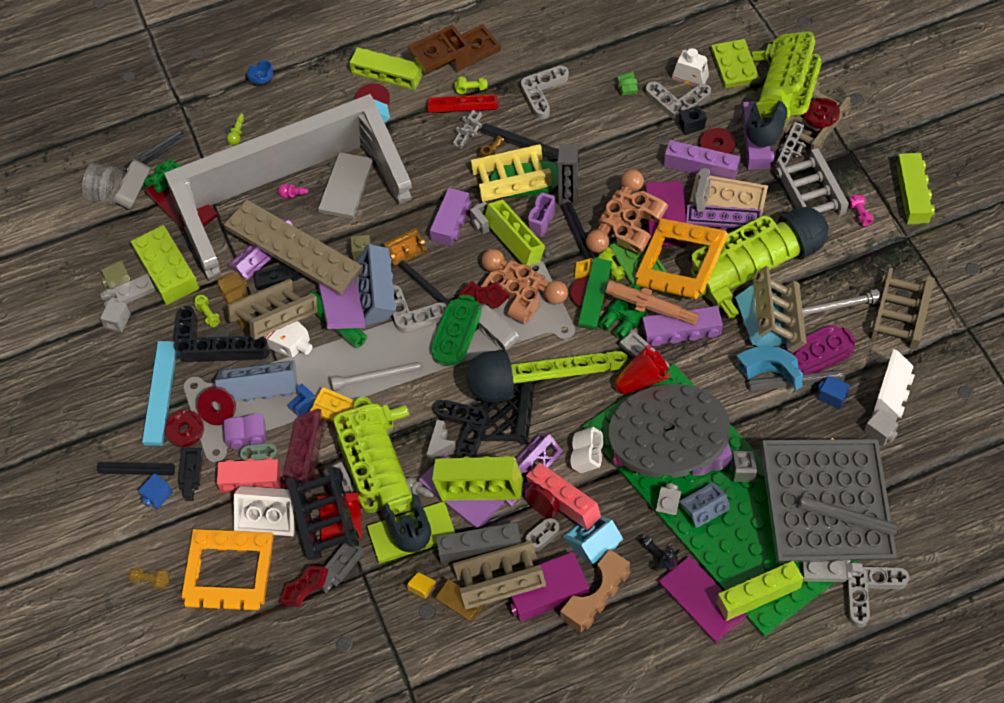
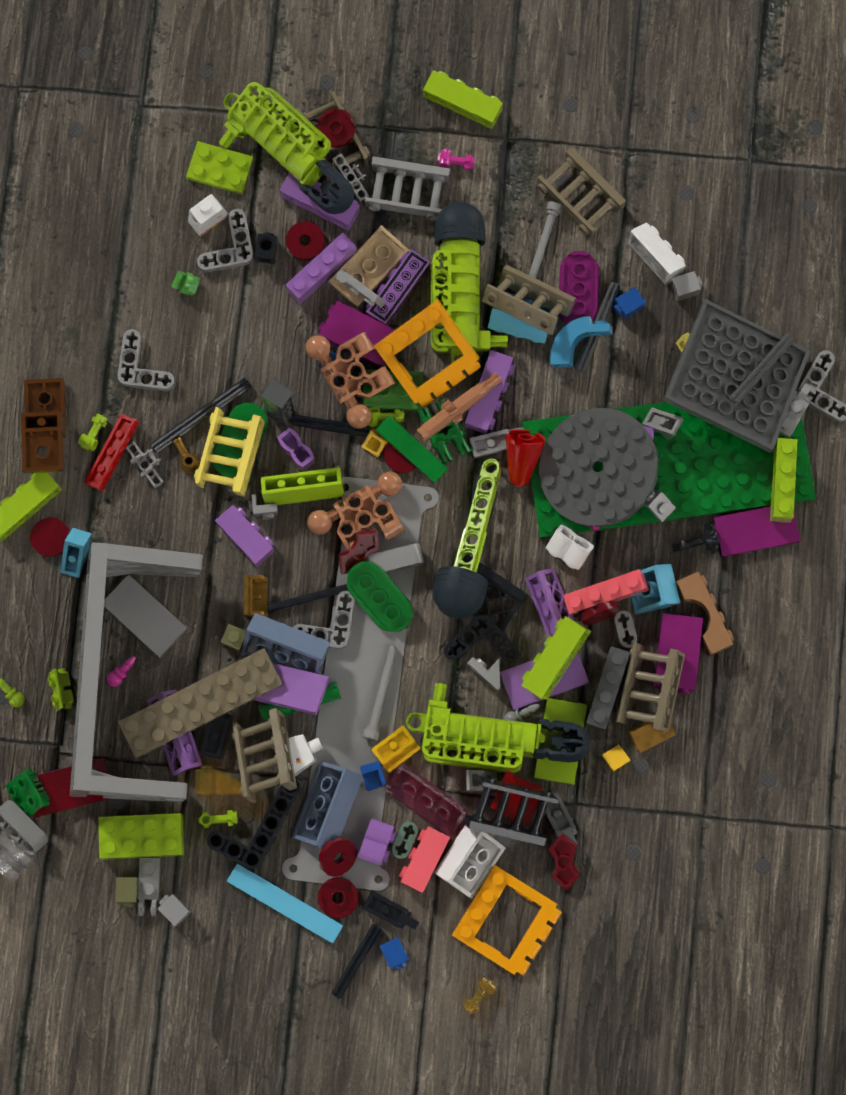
camera: 65 degrees left, 20 degrees up
(705, 504) = (679, 477): sand blue bracket -> none

